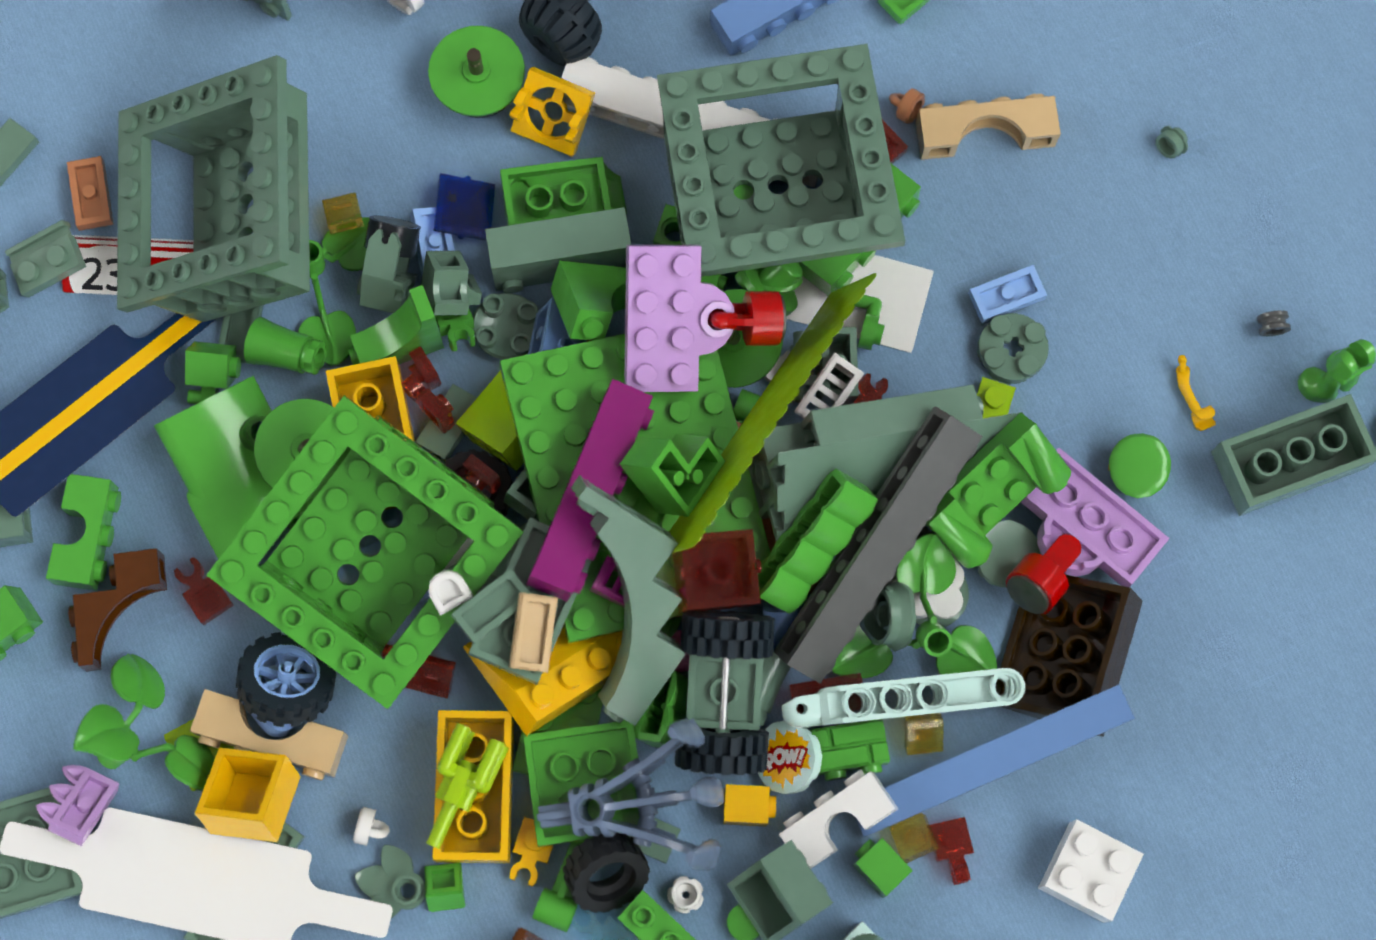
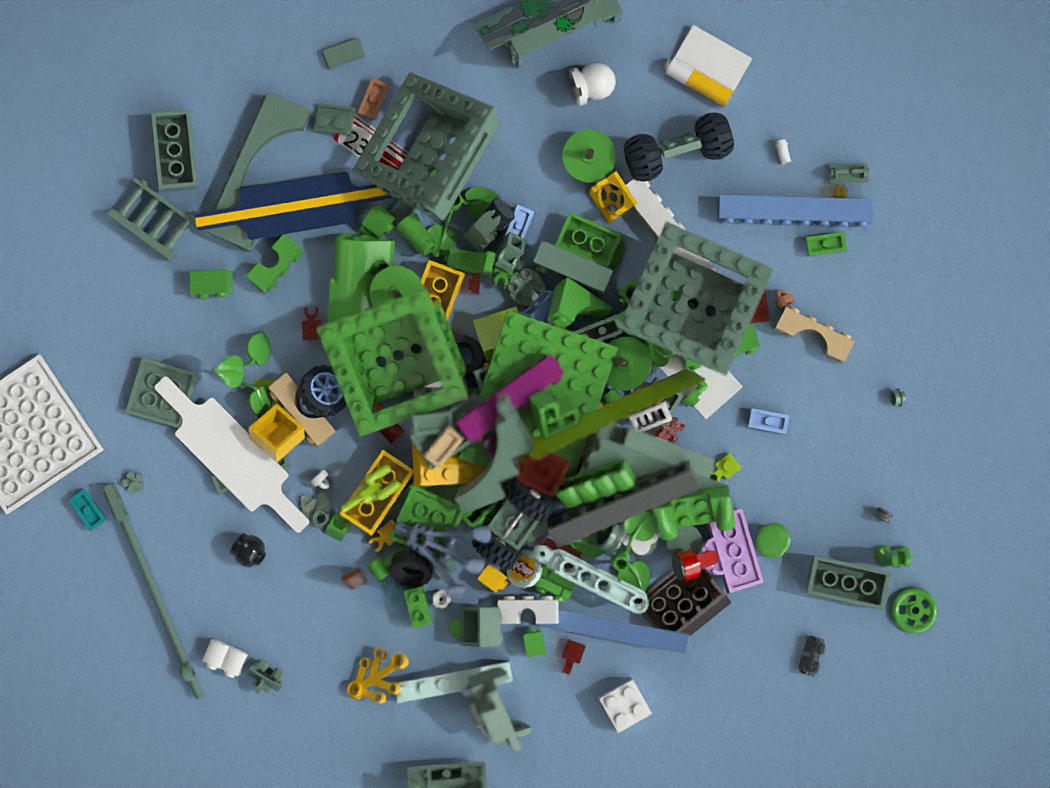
camera: 30 degrees right, 10 degrees up
(80, 804) = (201, 388): lavender plate -> none
(94, 613) = (257, 304): reddish brown arch -> none
(343, 213) = (484, 184): clear yellow tile -> none
(435, 408) = (468, 307): clear red plate -> none
(442, 444) = (464, 319): sand green tile -> none
(448, 590) = (418, 403): white tile -> none
(463, 207) = (542, 217): clear blue piece -> none
(481, 475) = (468, 354): clear red plate -> none
(678, 318) = (600, 344): lavender plate -> none
(914, 837) = (557, 640): clear yellow plate -> none
(923, 733) = (591, 599): clear yellow plate -> none
(996, 358) = (754, 459): sand green plate -> none
(1200, 416) = (819, 537): yellow piece -> none
(1325, 616) = (815, 649): none -> clear smoke hinge

